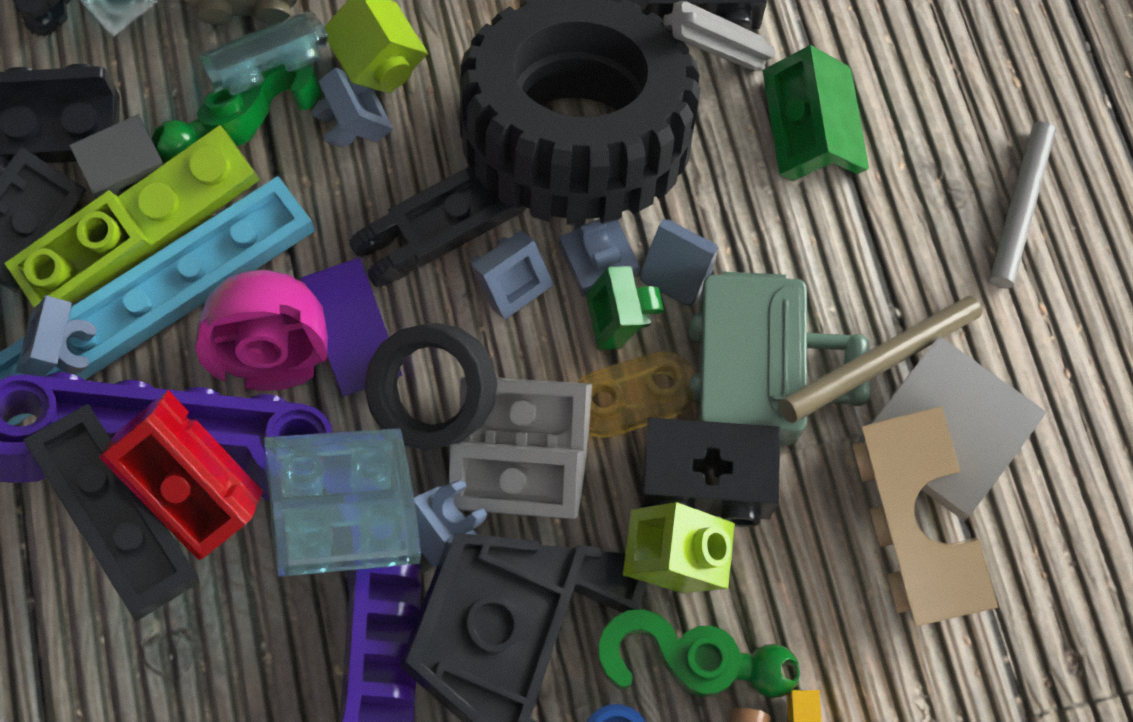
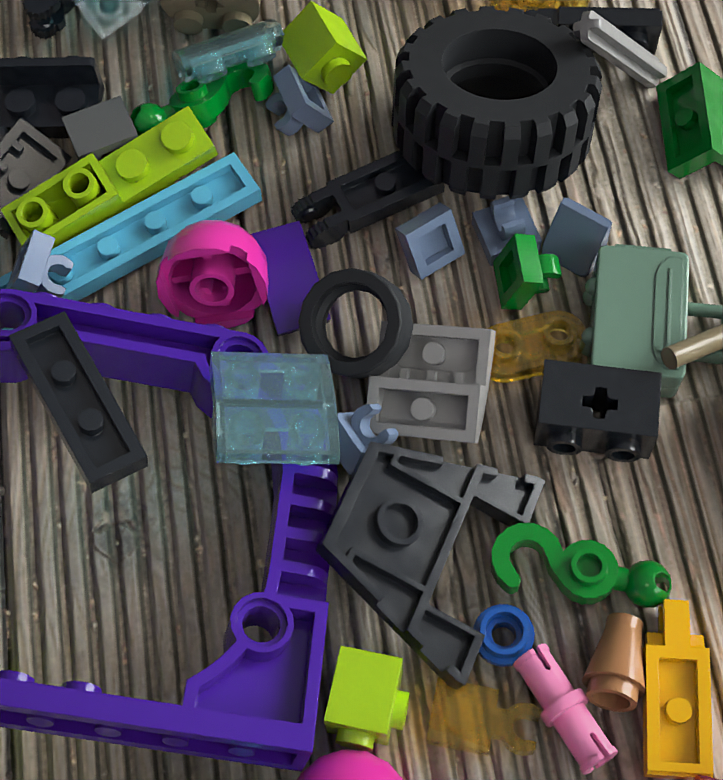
camera: 10 degrees right, 5 degrees down
(182, 475) = (140, 374): red brick -> none
(679, 548) = (567, 472): lime brick -> none

